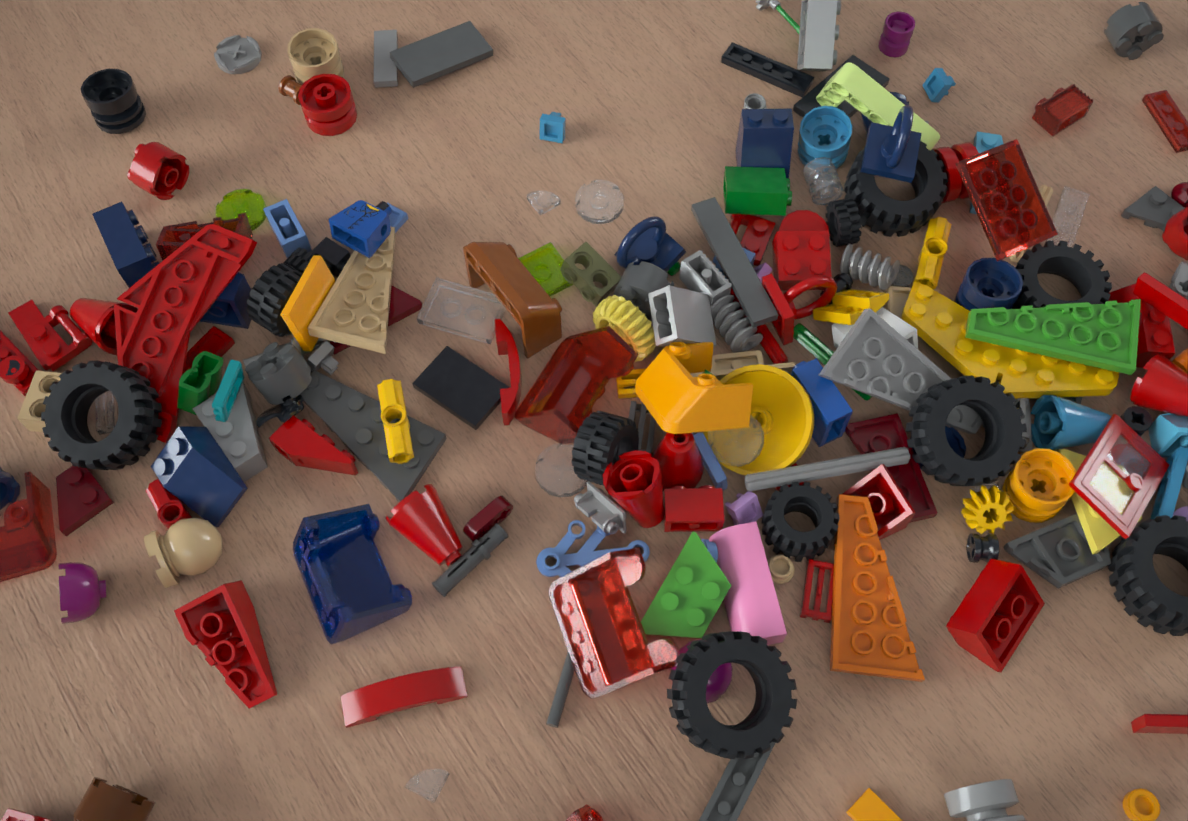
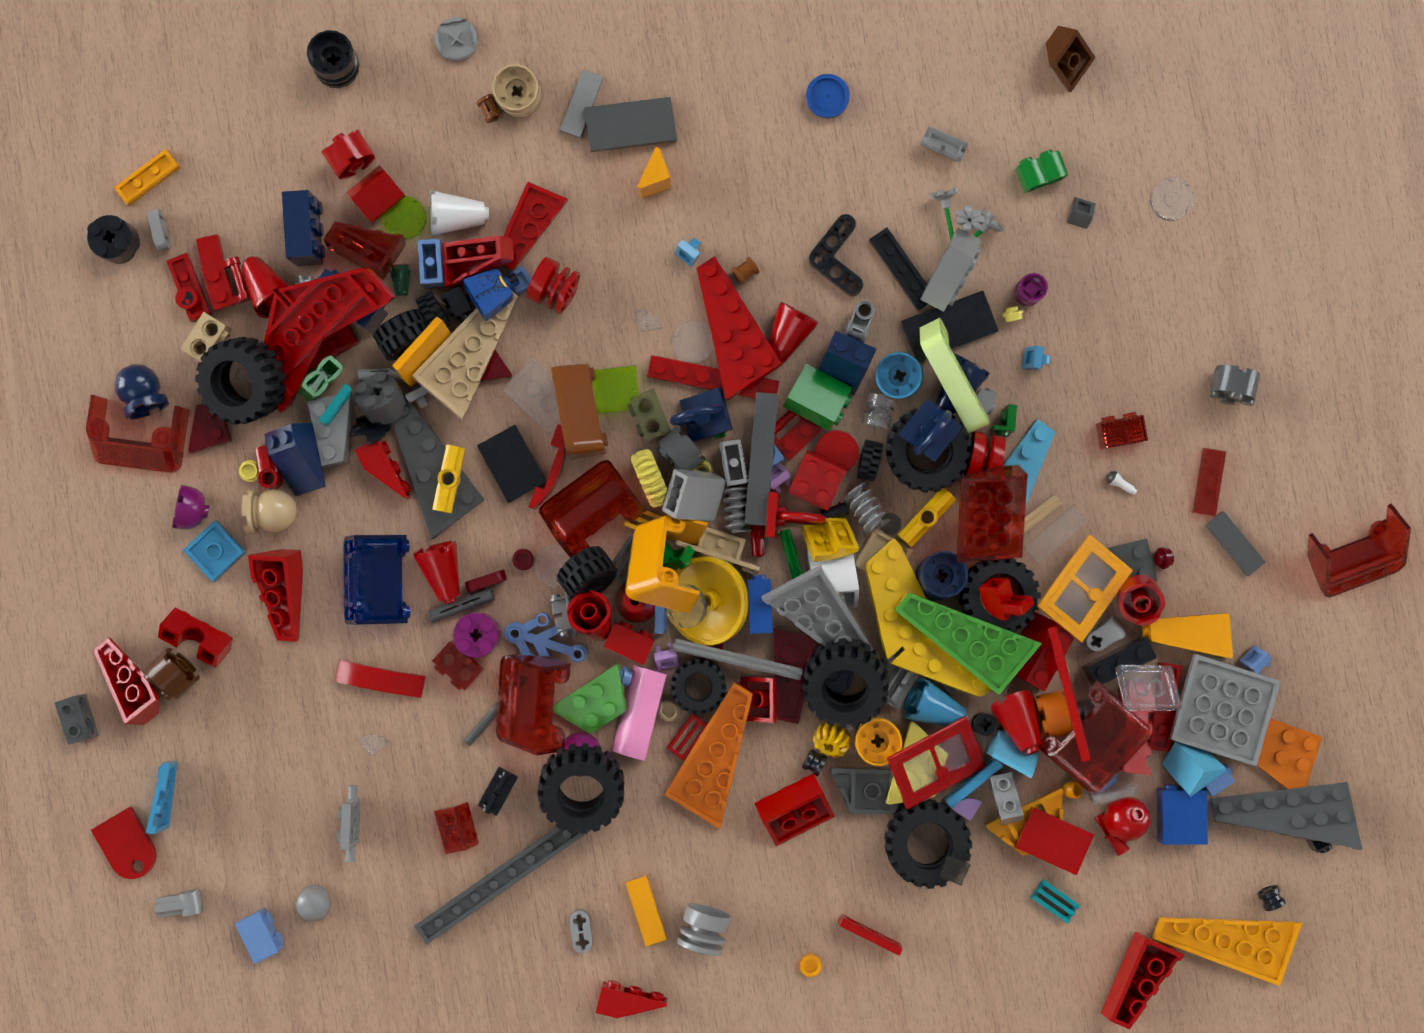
camera: 25 degrees right, 25 degrees up
(108, 744) = (181, 626): none -> red arch
(129, 635) = (214, 551): none -> dark azure tile
(146, 521) = (249, 471): none -> light yellow plate
(201, 196) = (375, 194): none -> red slope
(259, 260) = (400, 278): none -> clear green cone
(294, 178) = (455, 213): none -> white cone
(328, 104) = (516, 153): red wheel -> none
(330, 197) = (473, 257): none -> red wedge
(377, 162) = (531, 218): none -> red wing
(428, 198) = (549, 283): none -> red wheel
(489, 75) = (655, 176): none -> light orange slope
(500, 566) = (467, 643): none -> magenta brick
(501, 622) = (460, 661): none -> clear red brick
(521, 478) = (523, 559): none -> dark red plate
(615, 228) = (701, 376): none -> red plate
(620, 118) = (745, 270): none -> dark orange bush
(621, 768) = (497, 791): none -> black hinge
(642, 172) = (738, 340): none -> red wing
(691, 147) = (789, 330): none -> red cone
(695, 87) = (830, 261): none -> black beam
(893, 61) = (1012, 313): none -> light yellow plate
(950, 135) = (1008, 417): none -> green bracket
(1070, 285) = (1000, 601): none -> red brick
(1086, 151) = (1114, 478): none -> white piece
(1137, 242) = (1084, 588): none -> light orange door

